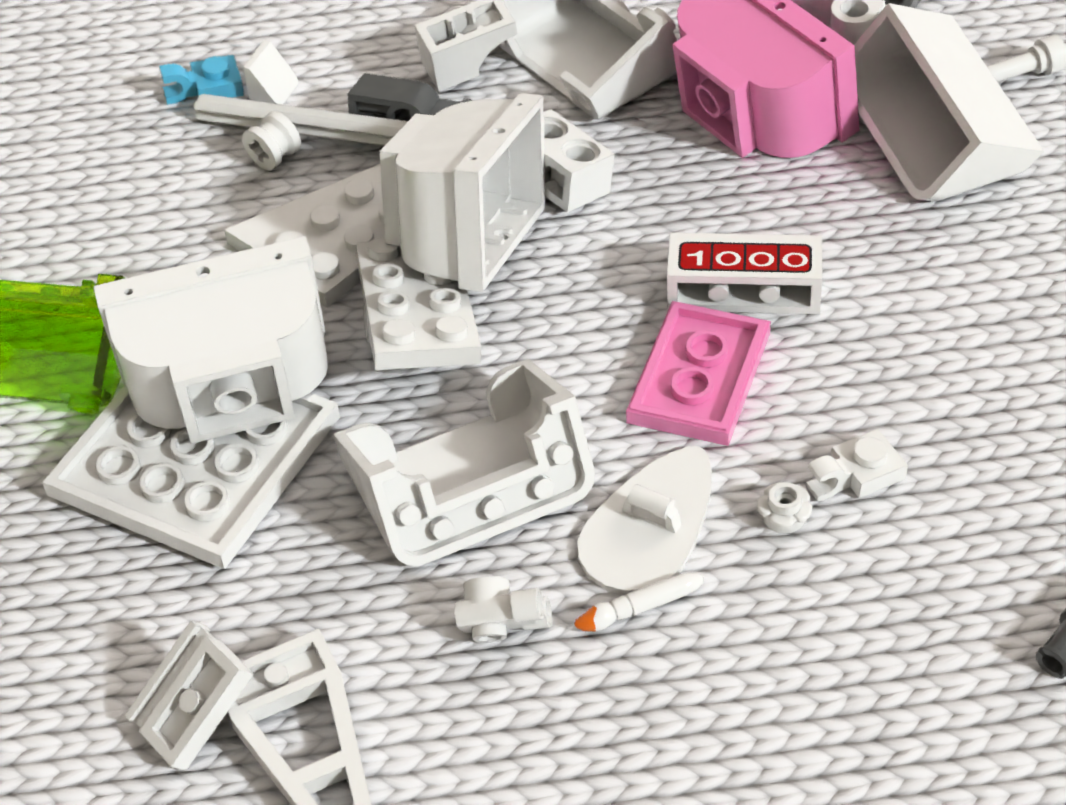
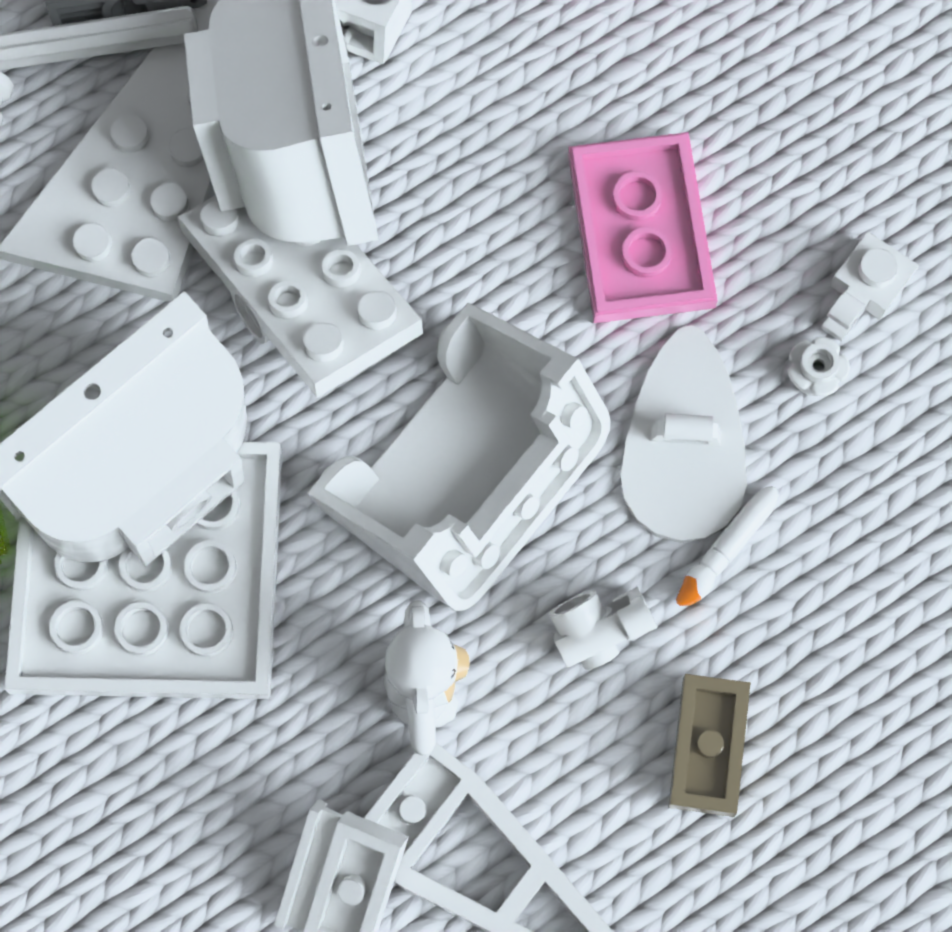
camera: 30 degrees left, 25 degrees up
(337, 582) = (422, 676): none -> white piece
(537, 728) = (709, 745): none -> dark tan plate
(746, 272) = (632, 78): white brick -> none

